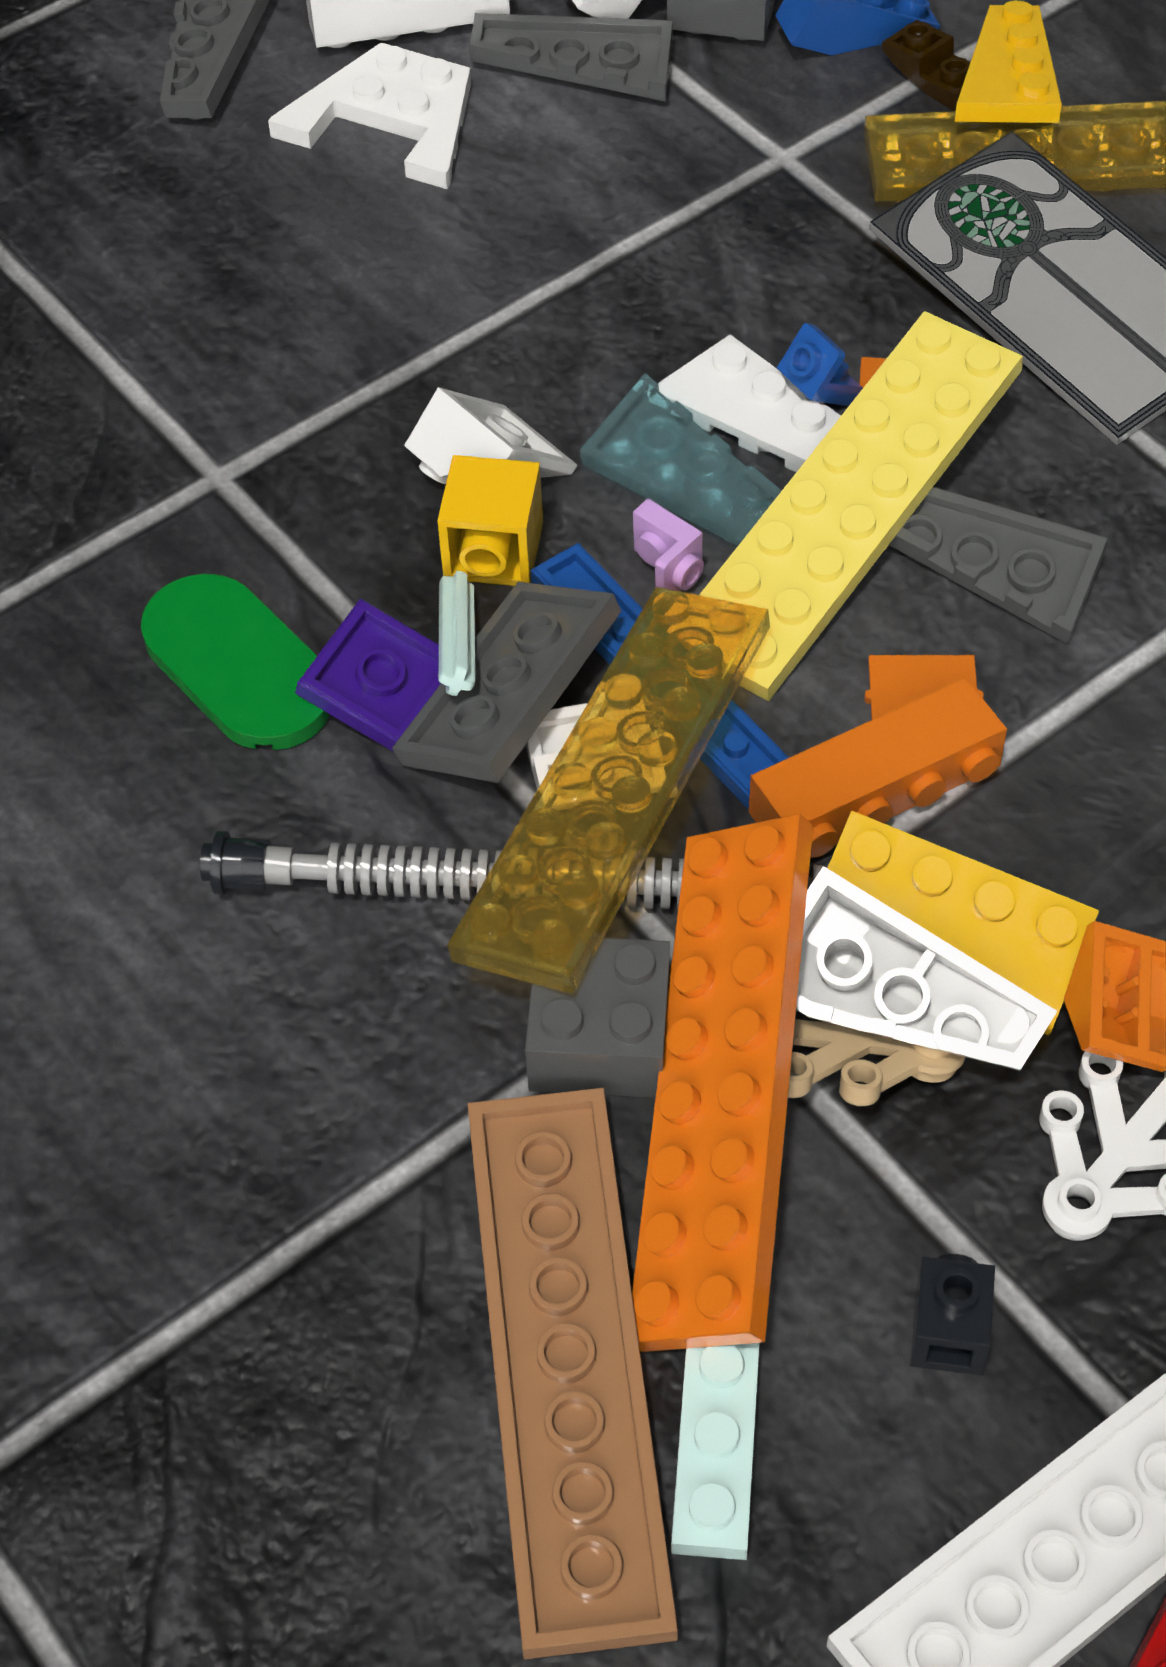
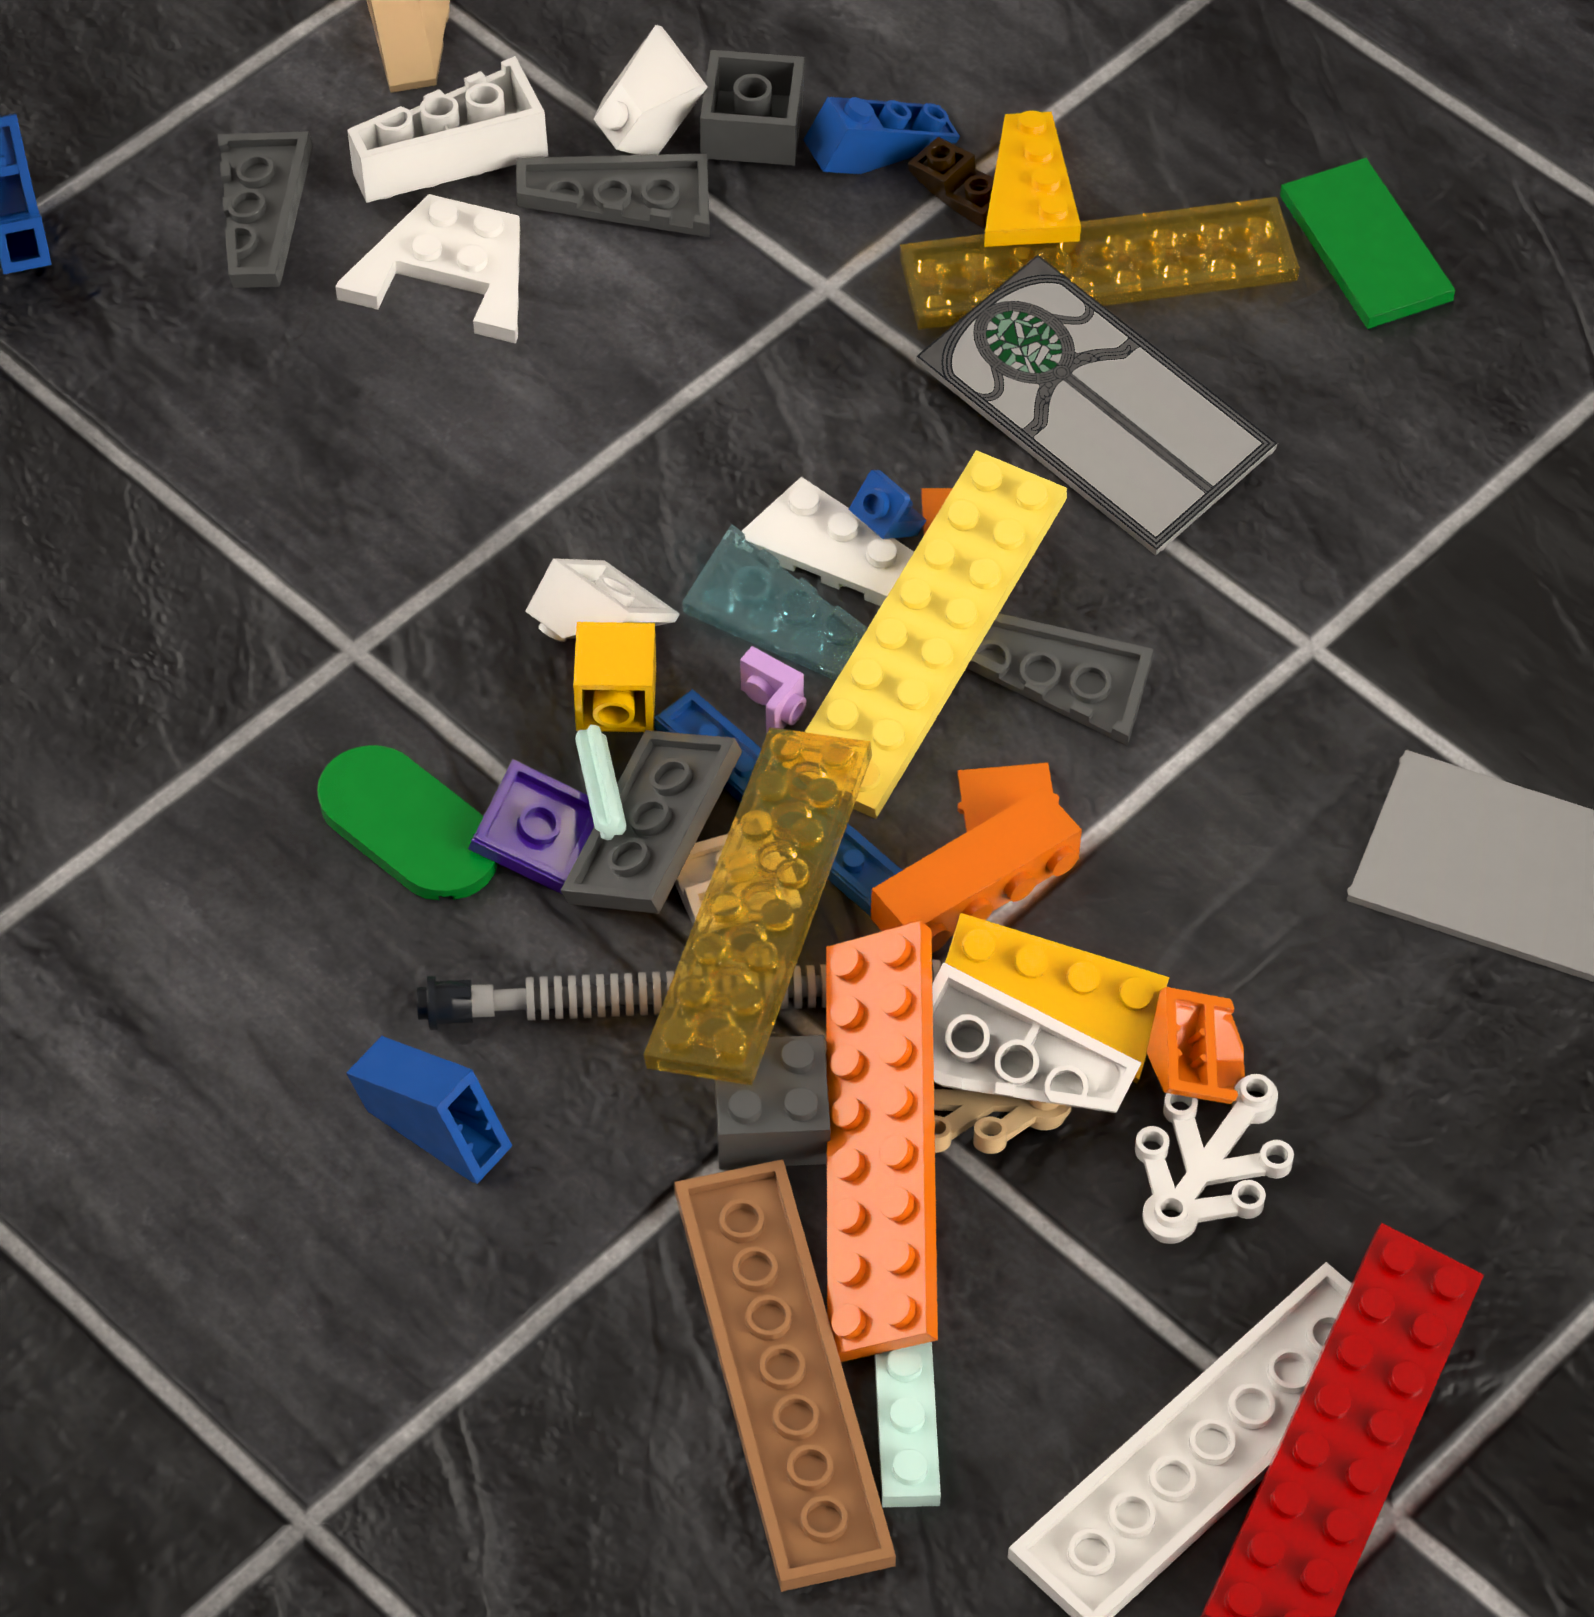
camera: 10 degrees left, 0 degrees up
(195, 983) = (431, 1105): none -> blue slope
(953, 1314) = (1080, 1307): black brick -> none

